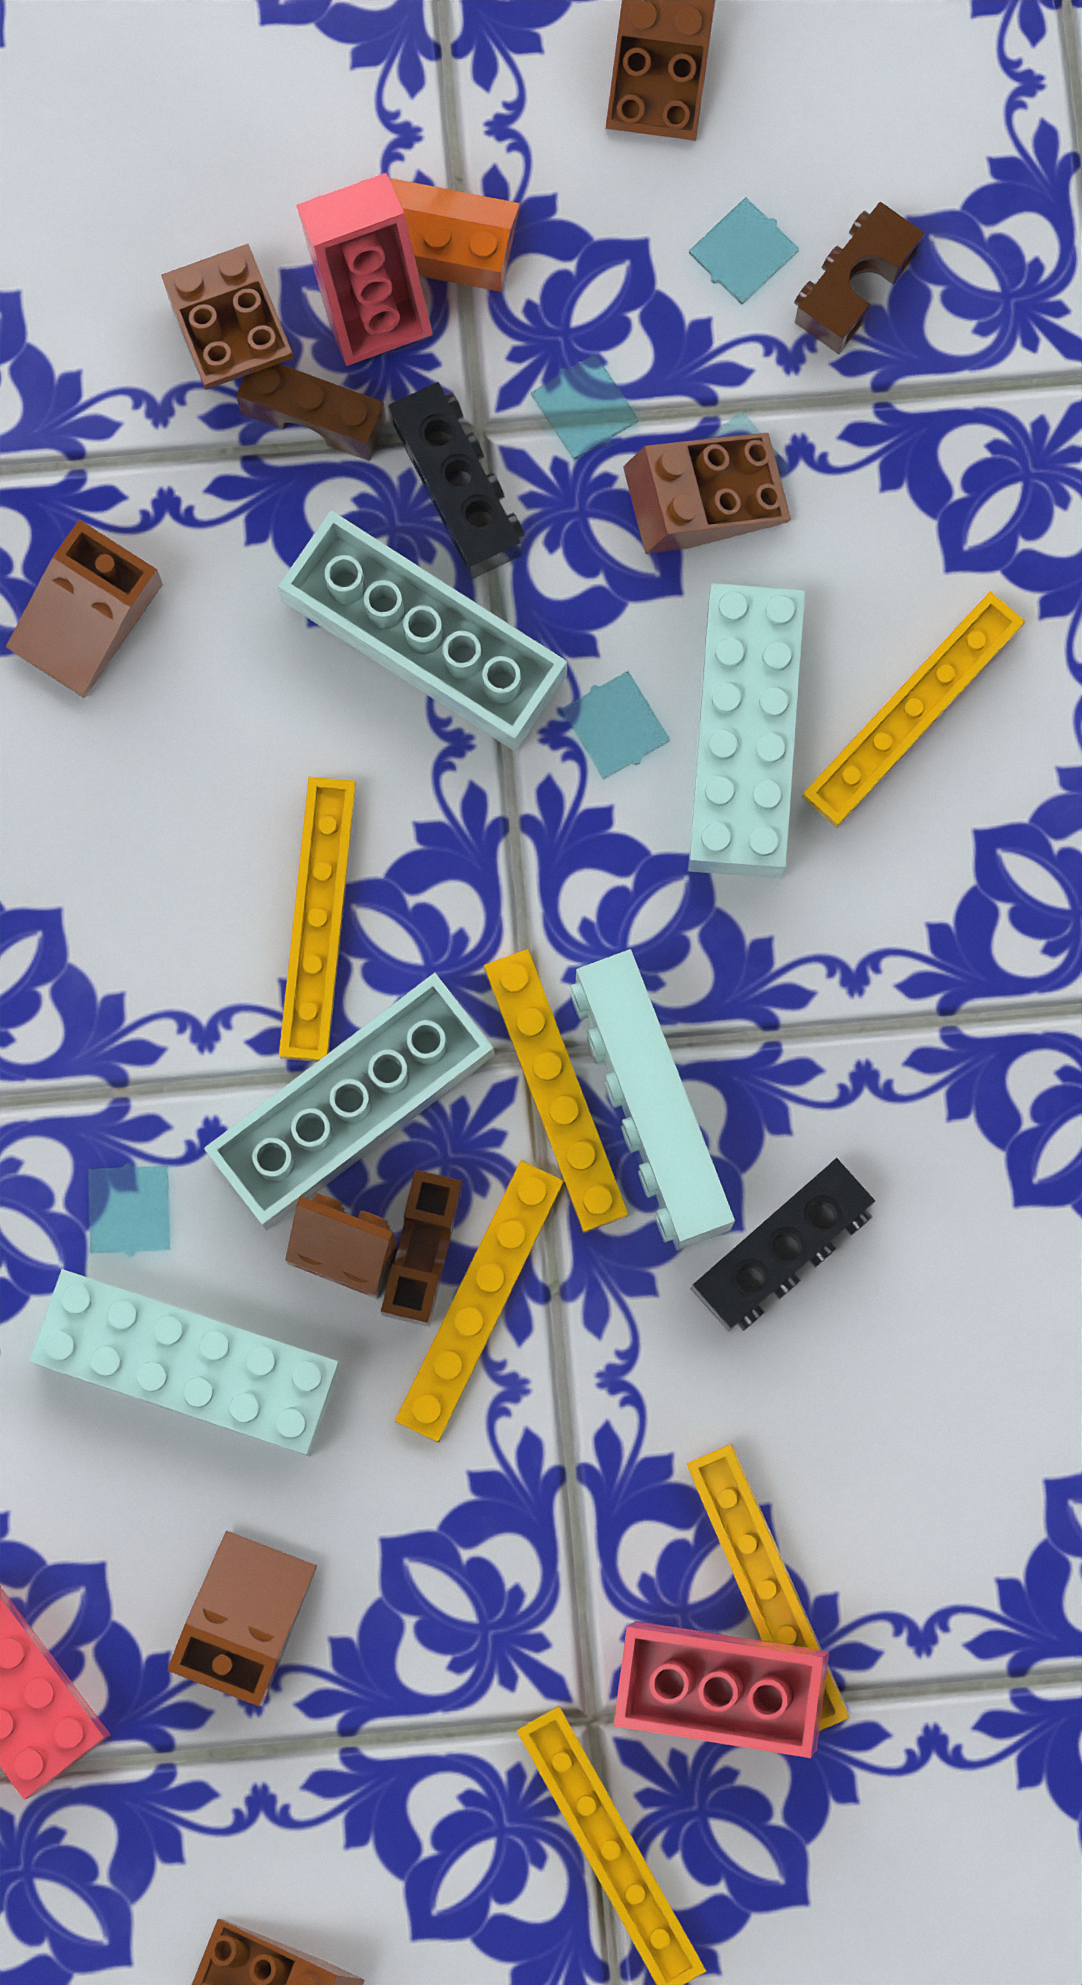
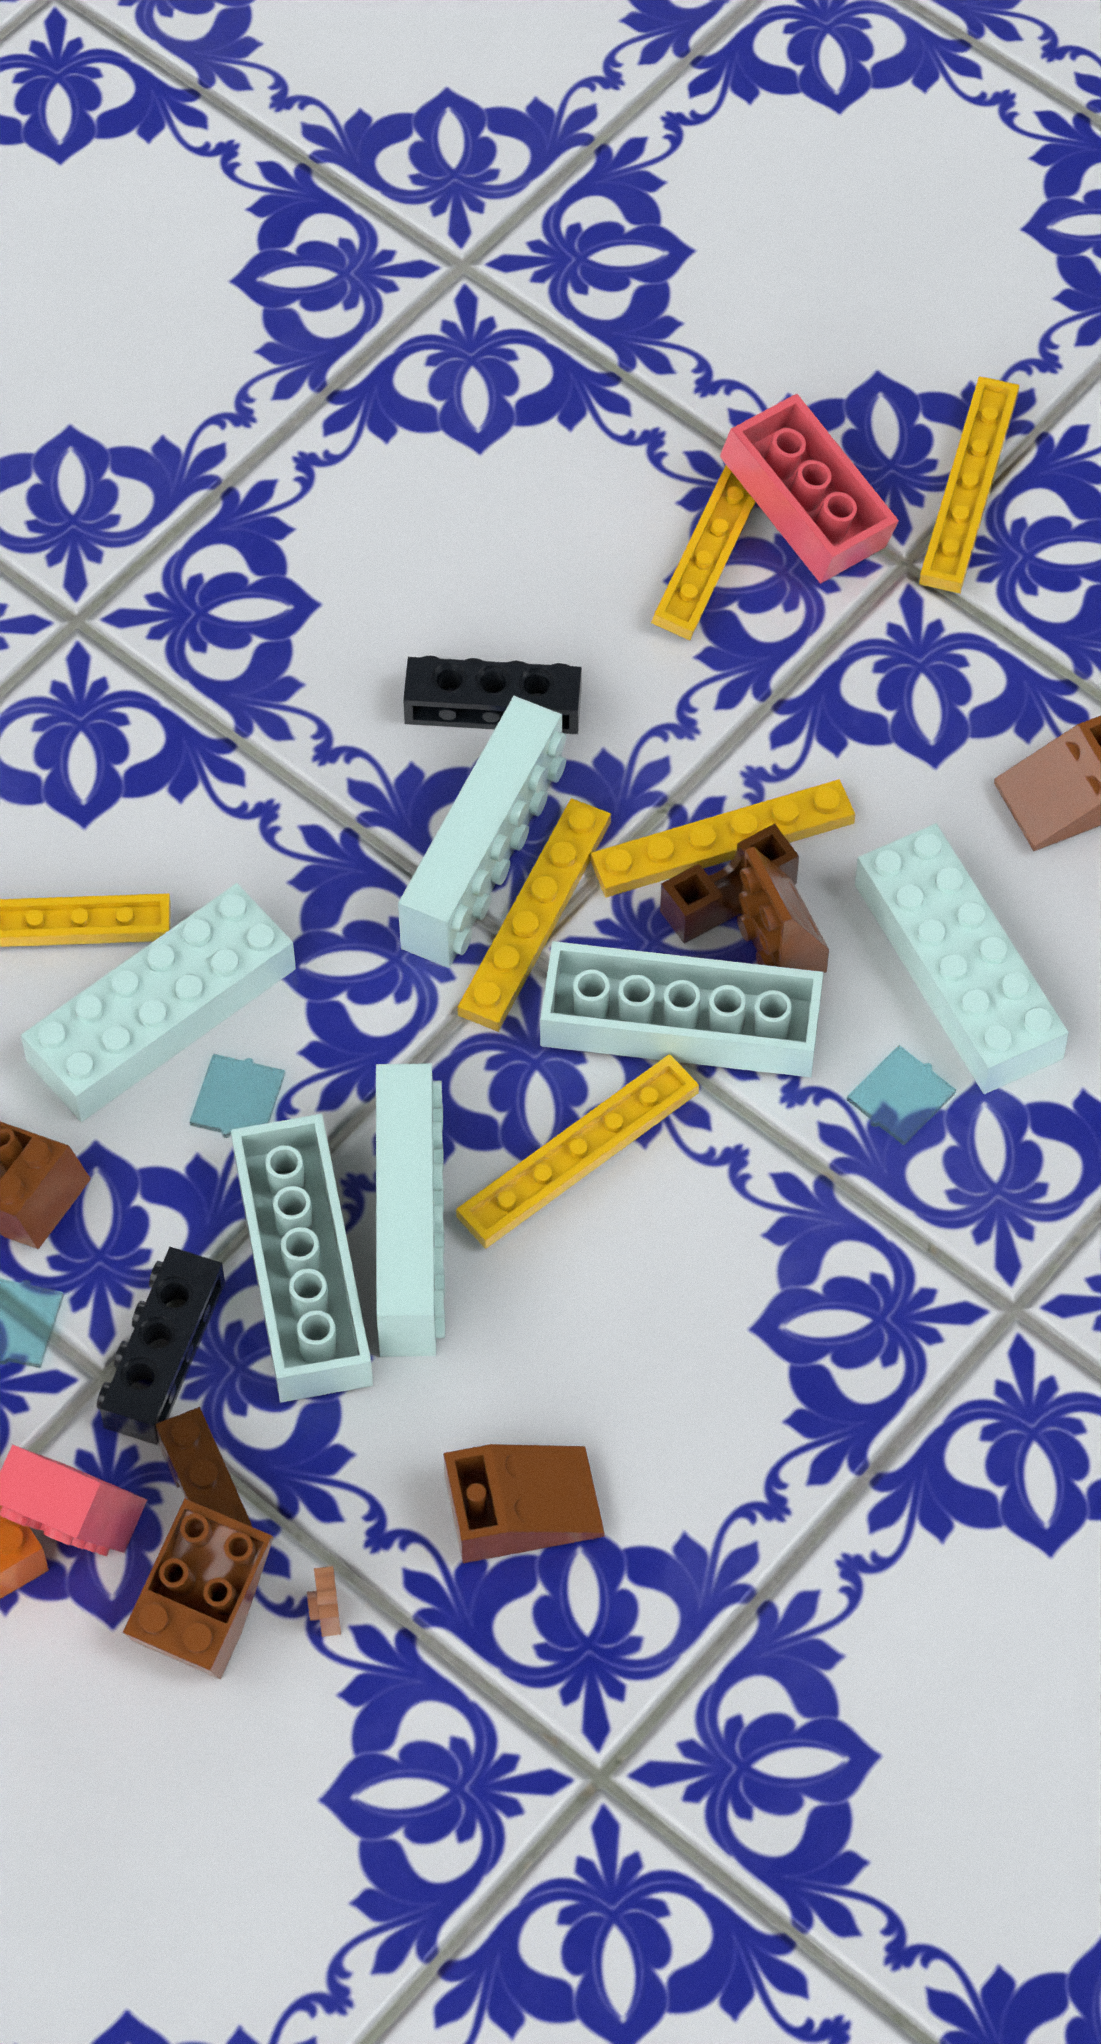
camera: 135 degrees left, 20 degrees down
(143, 408) = (324, 1603): none -> nougat plate
(382, 735) = (409, 1210): none -> light aqua brick

